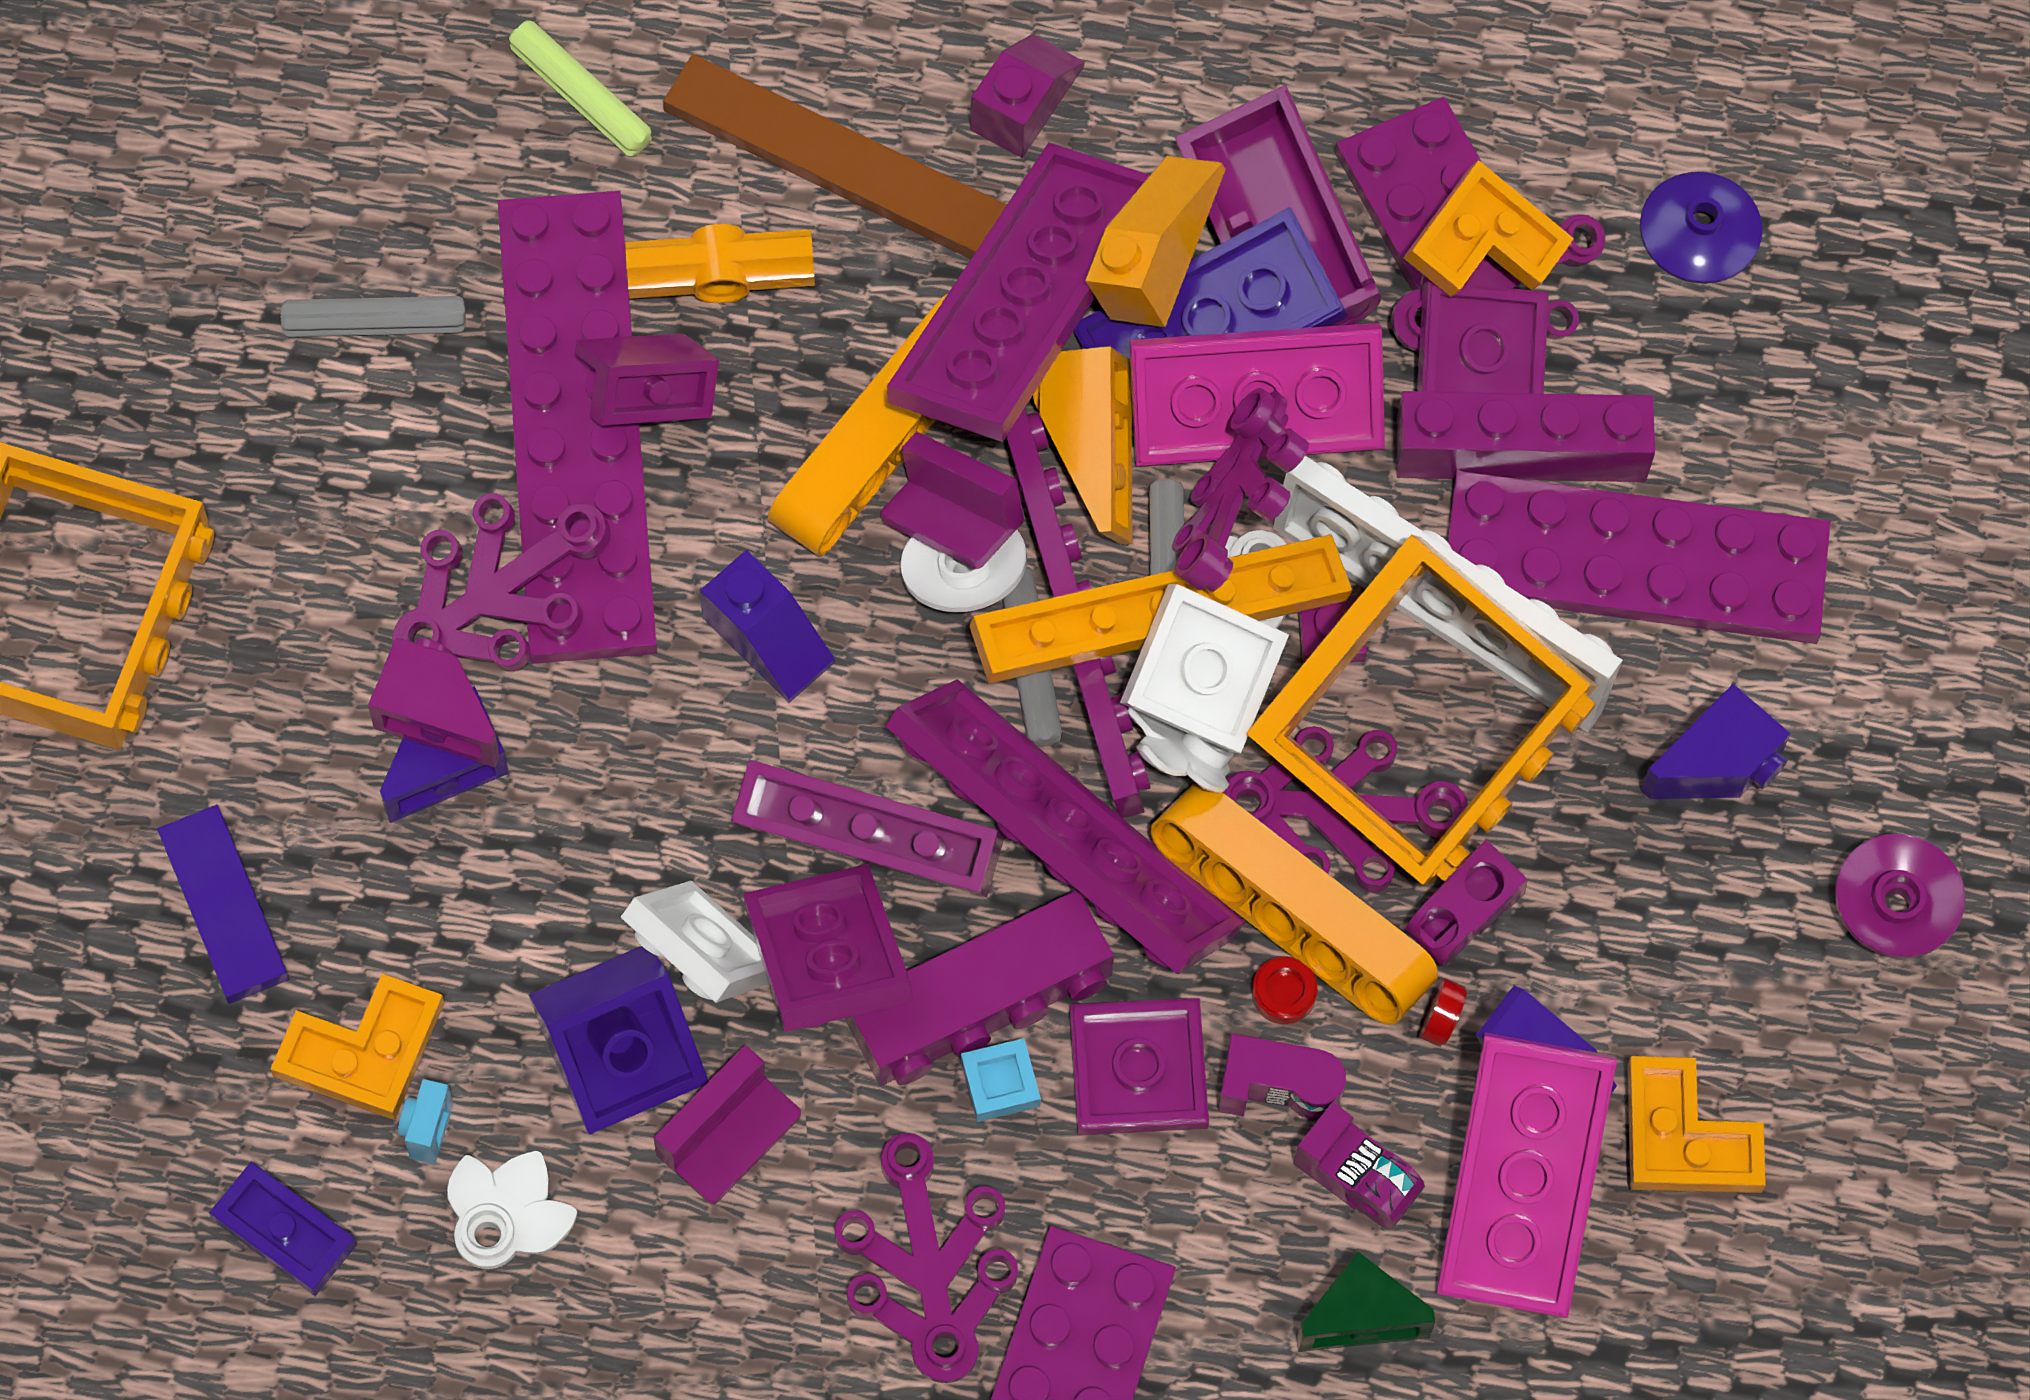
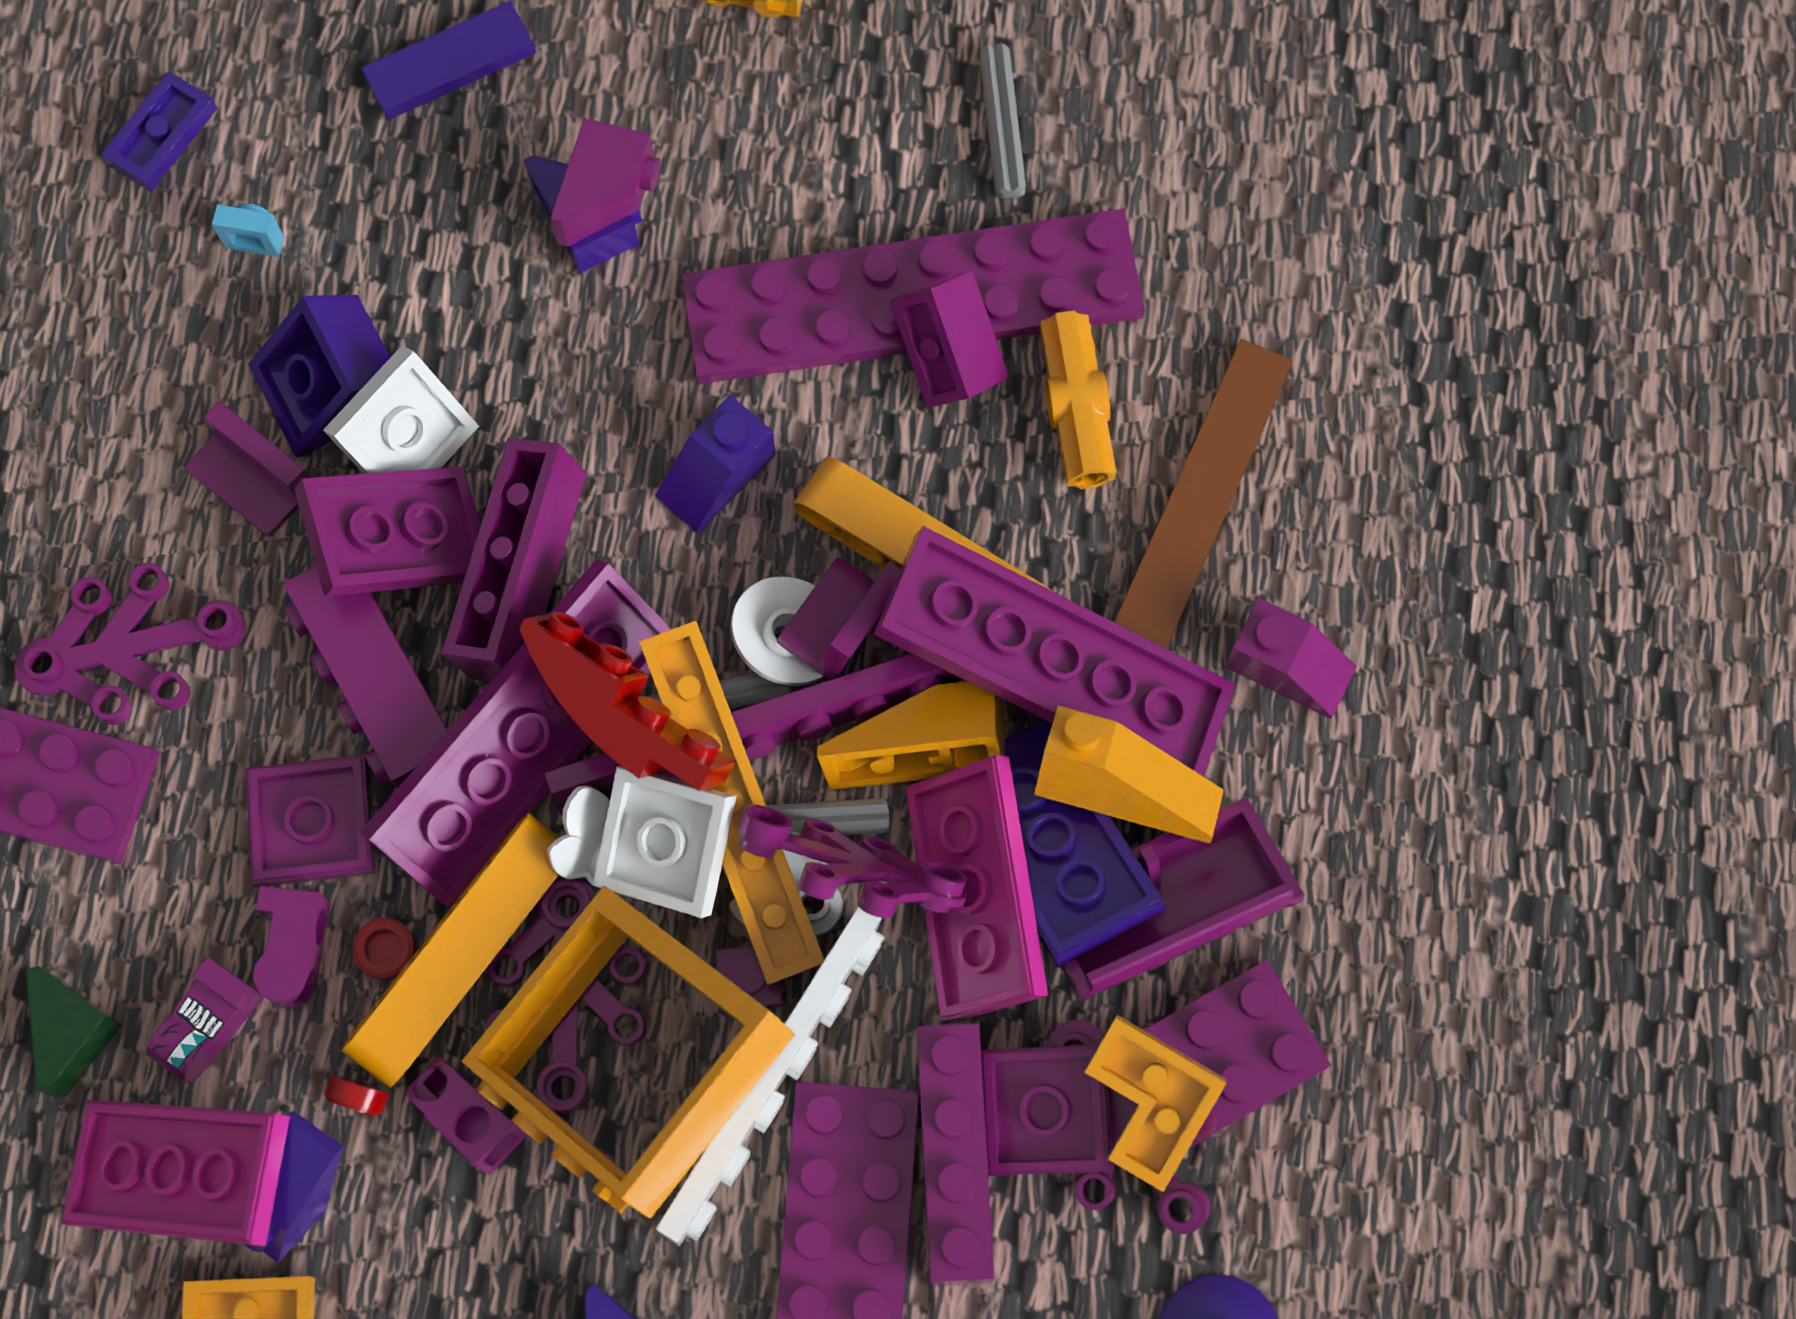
camera: 90 degrees right, 5 degrees up
(367, 1065) = (303, 177): light orange plate -> none
(491, 591) = (736, 232): magenta plant -> none
(510, 1201) = (183, 308): white plate -> none
(580, 88) = (1248, 270): yellowish green axle -> none
(1000, 1080) = (290, 697): medium azure plate -> none
(1053, 704) = (602, 697): none -> red slope

